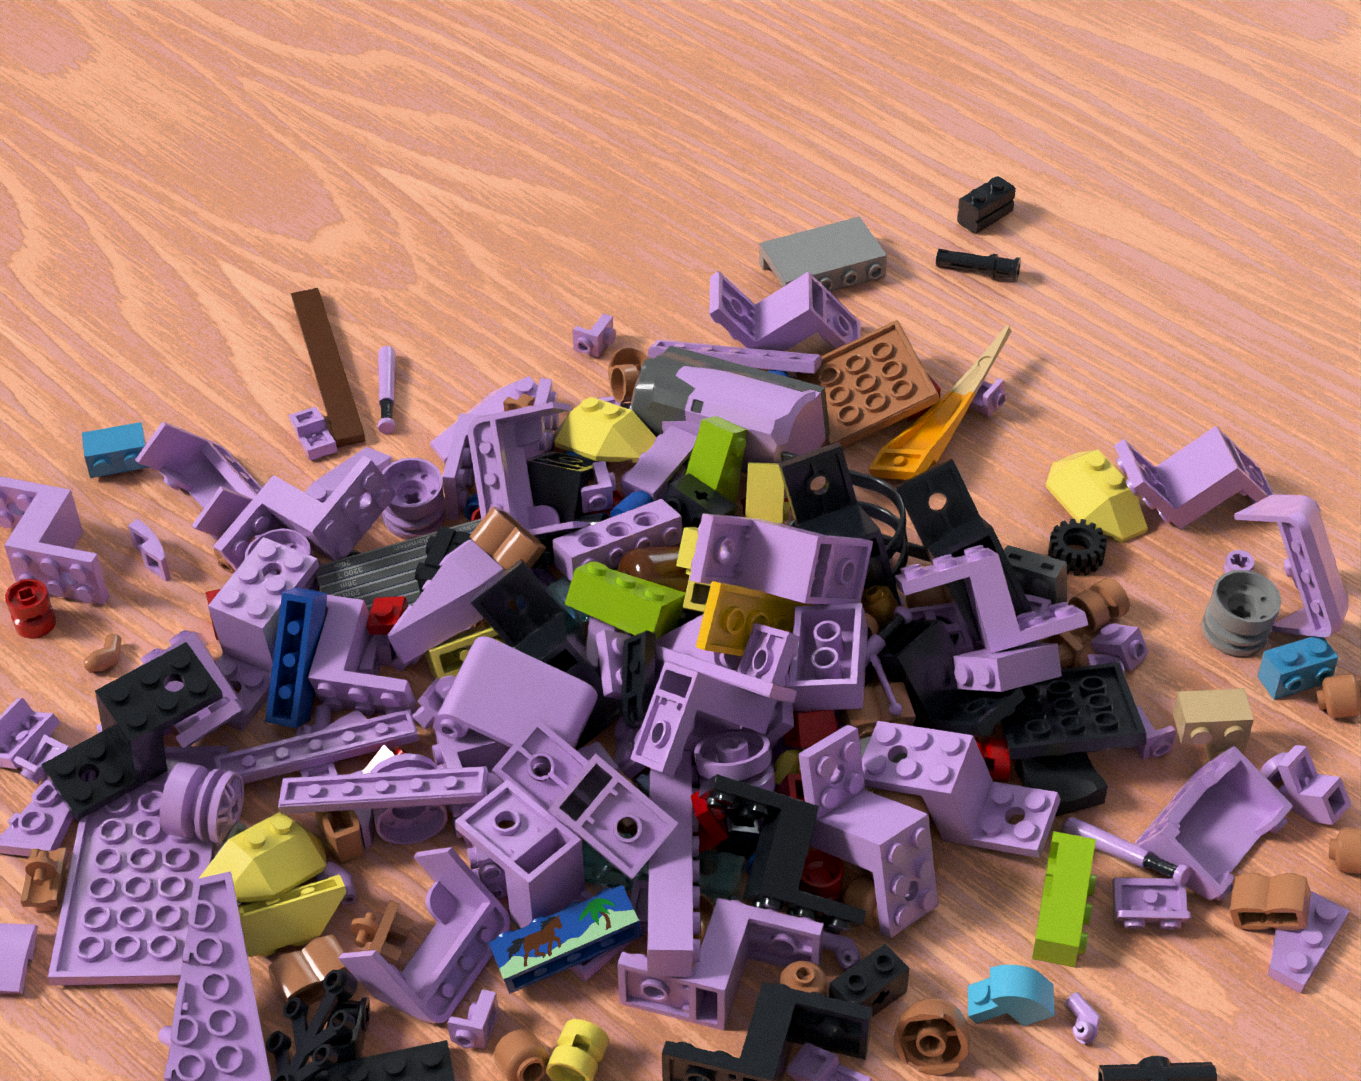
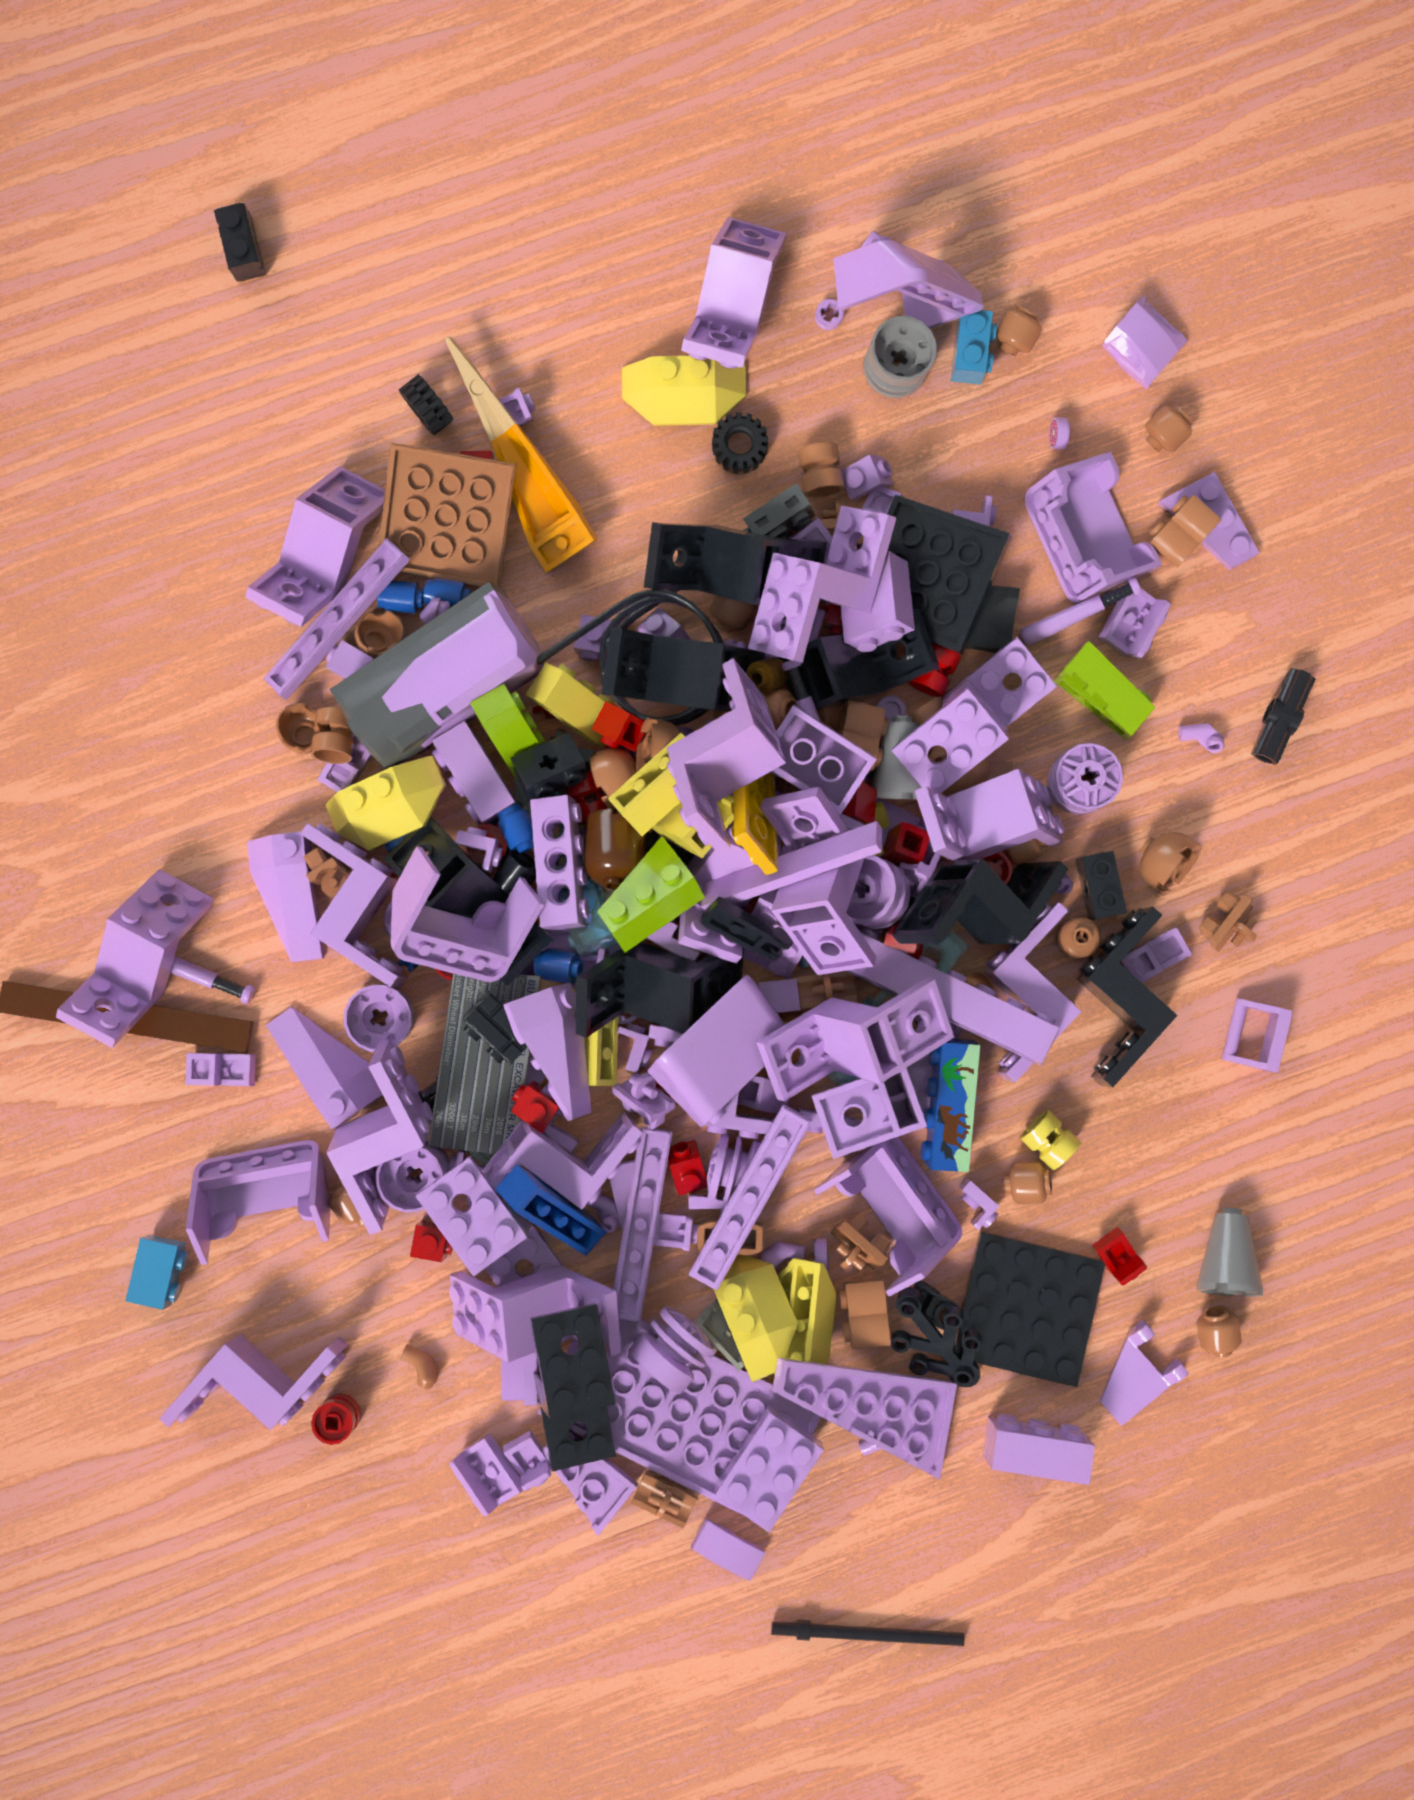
camera: 60 degrees left, 40 degrees up
(111, 937) = (768, 1468): none -> lavender brick
(150, 548) = (316, 1281): lavender slope -> none
(354, 906) = (821, 1251): none -> lavender tile
(379, 336) = (135, 958): none -> lavender bracket
(506, 539) = (523, 969): nougat brick -> none
(596, 340) = (232, 730): lavender bracket -> none
(833, 253) = (234, 452): light grey panel -> none
(895, 708) = (877, 724): lavender hinge -> none
(946, 340) = (426, 404): none -> black tyre
(964, 920) = (1081, 796): none -> lavender wheel
(991, 265) = (331, 291): black pin -> none
(1012, 990) = (1165, 783): medium azure brick -> none
(1214, 719) = (1007, 459): tan brick -> none
(1313, 795) = (1099, 423): lavender brick -> none

